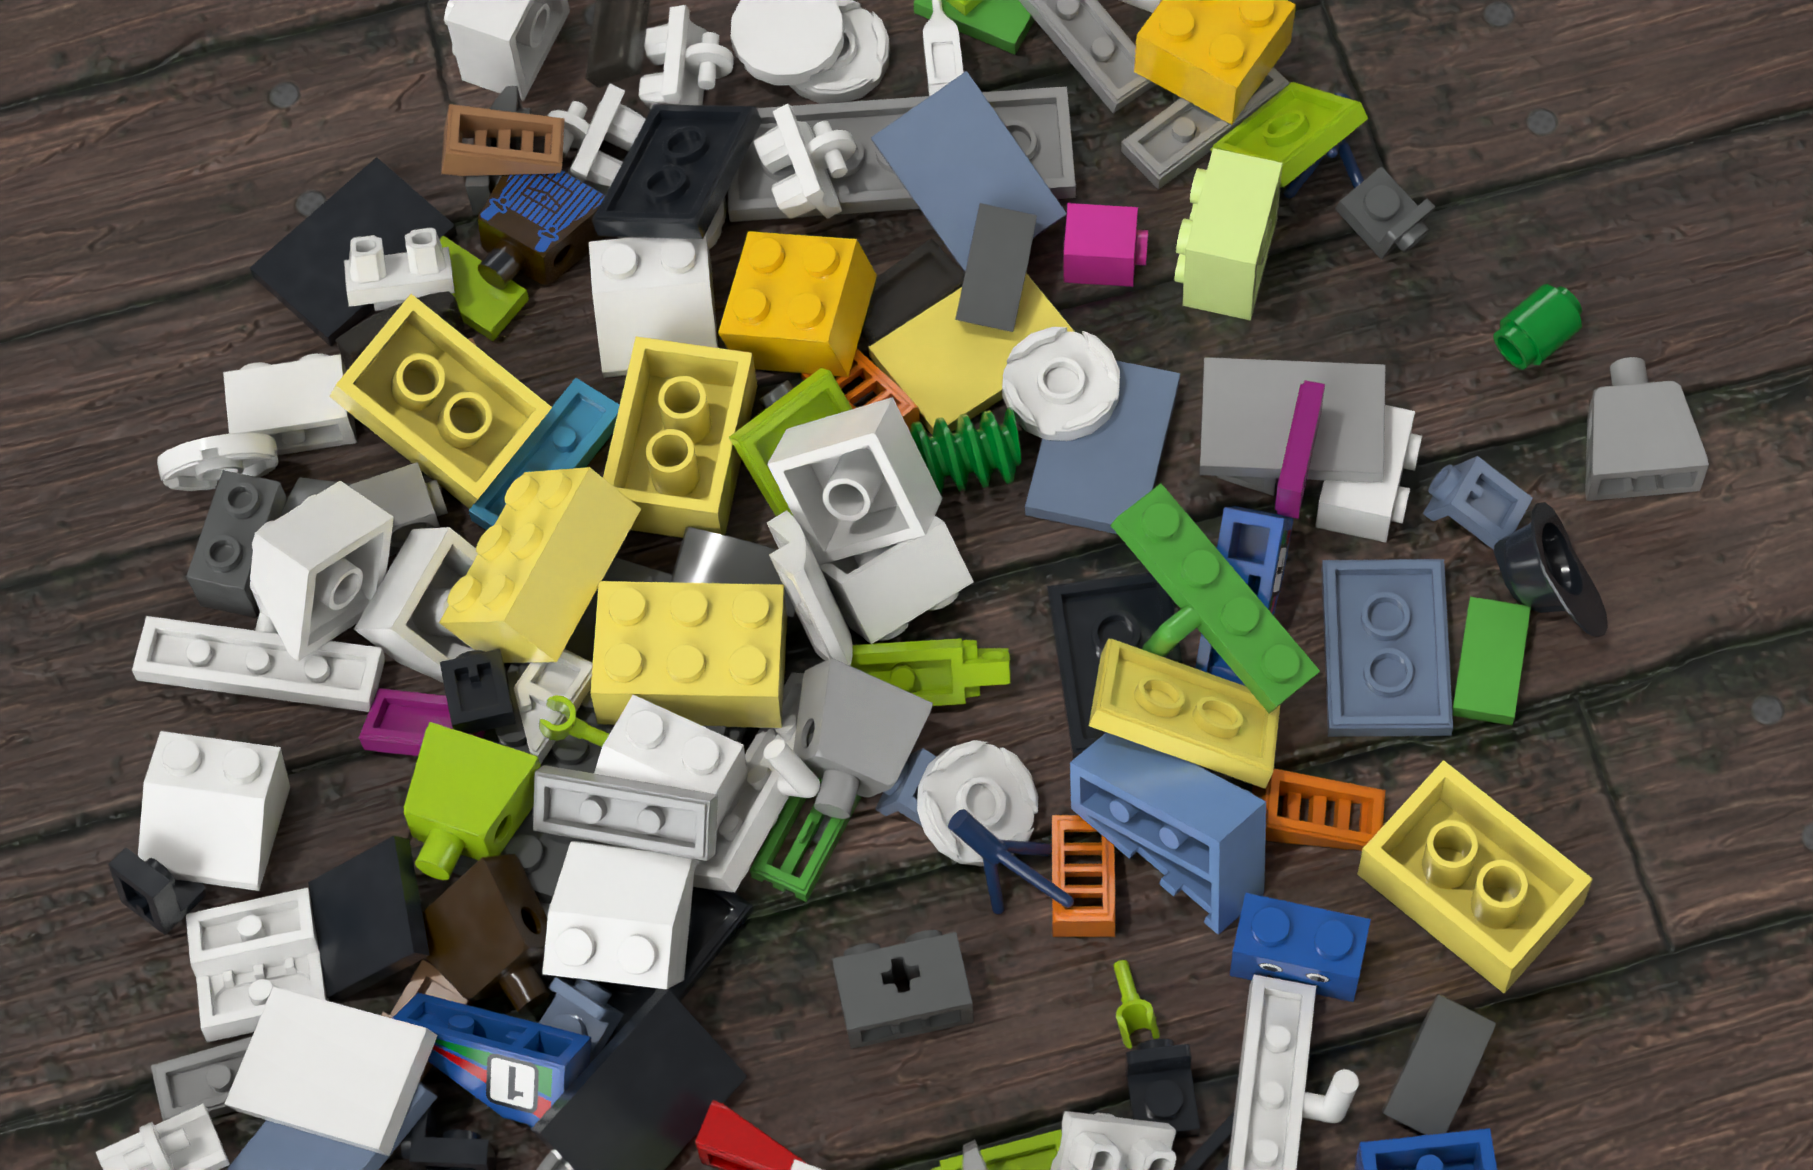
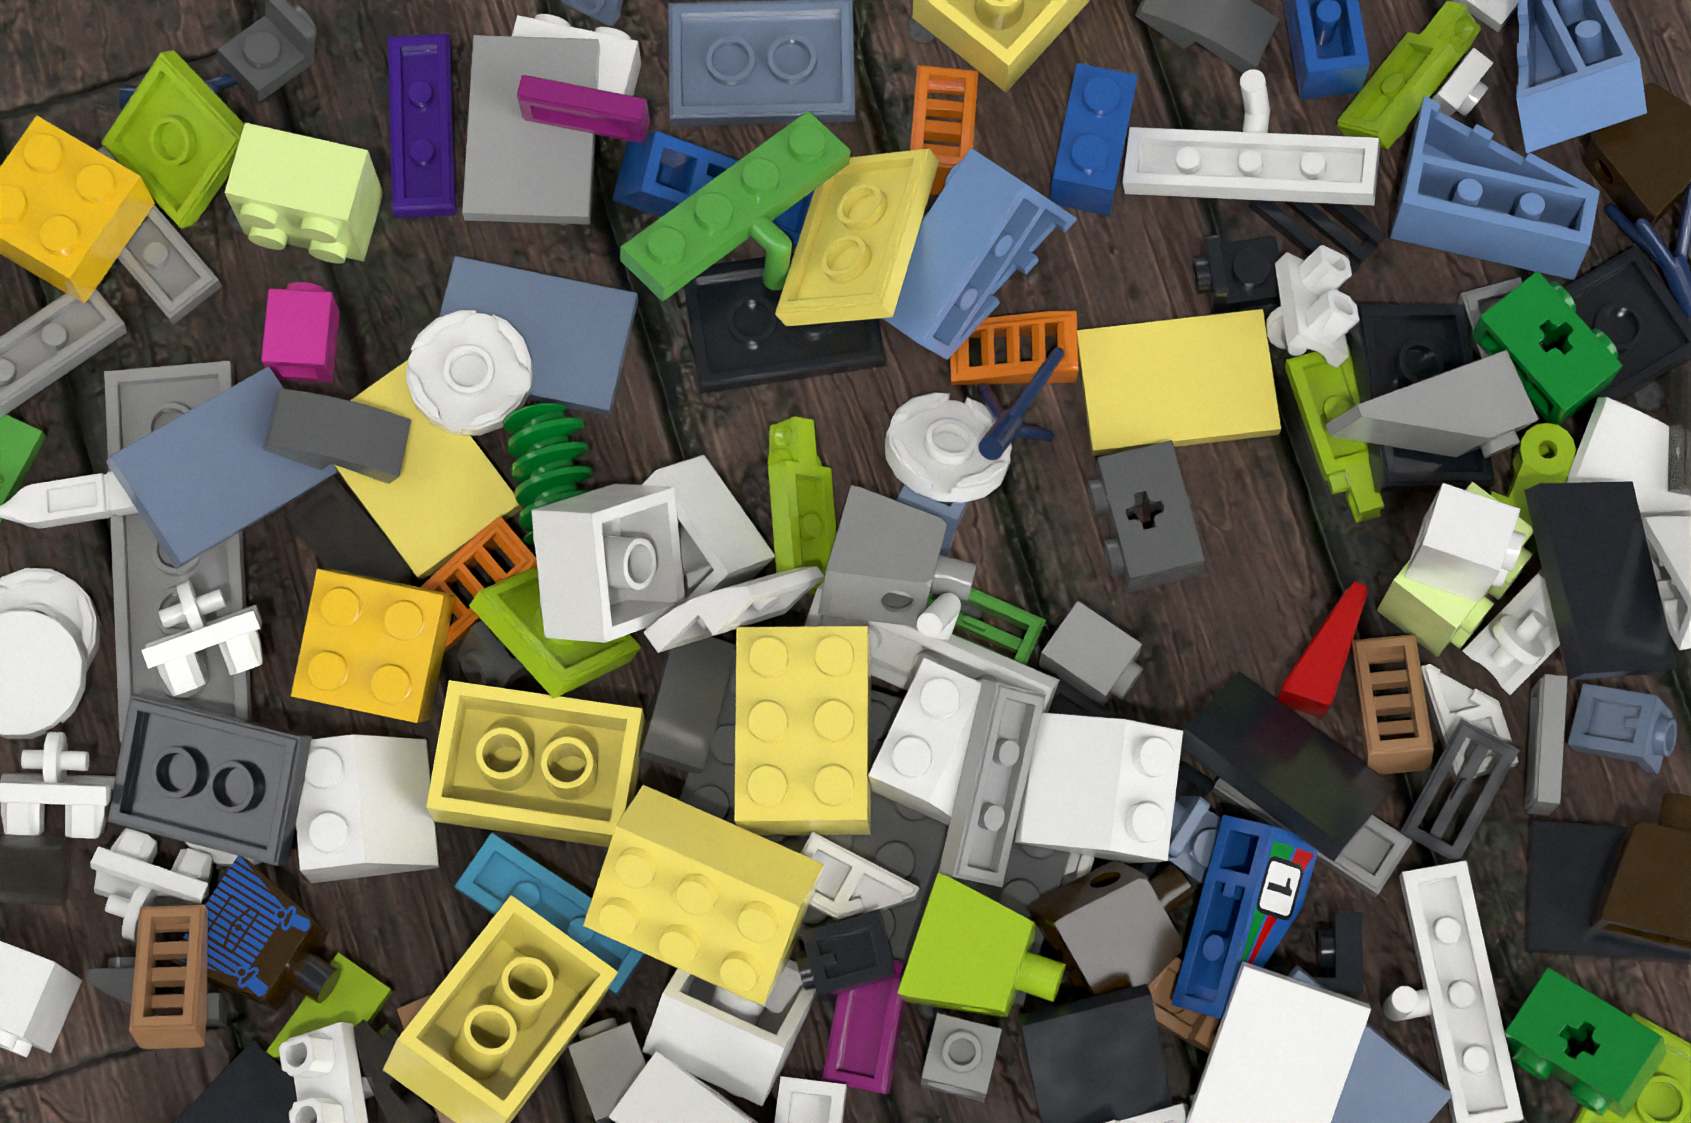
camera: 95 degrees left, 10 degrees up
(377, 799) = (960, 1057): none -> light grey brick
(573, 726) = (888, 845): lime hand -> none
(764, 932) = (1092, 655): none -> light grey brick
(1047, 1029) = (1178, 382): none -> light yellow tile
(1133, 1012) = (1156, 298): lime hand -> none
(1322, 339) = (422, 126): none -> dark purple tile

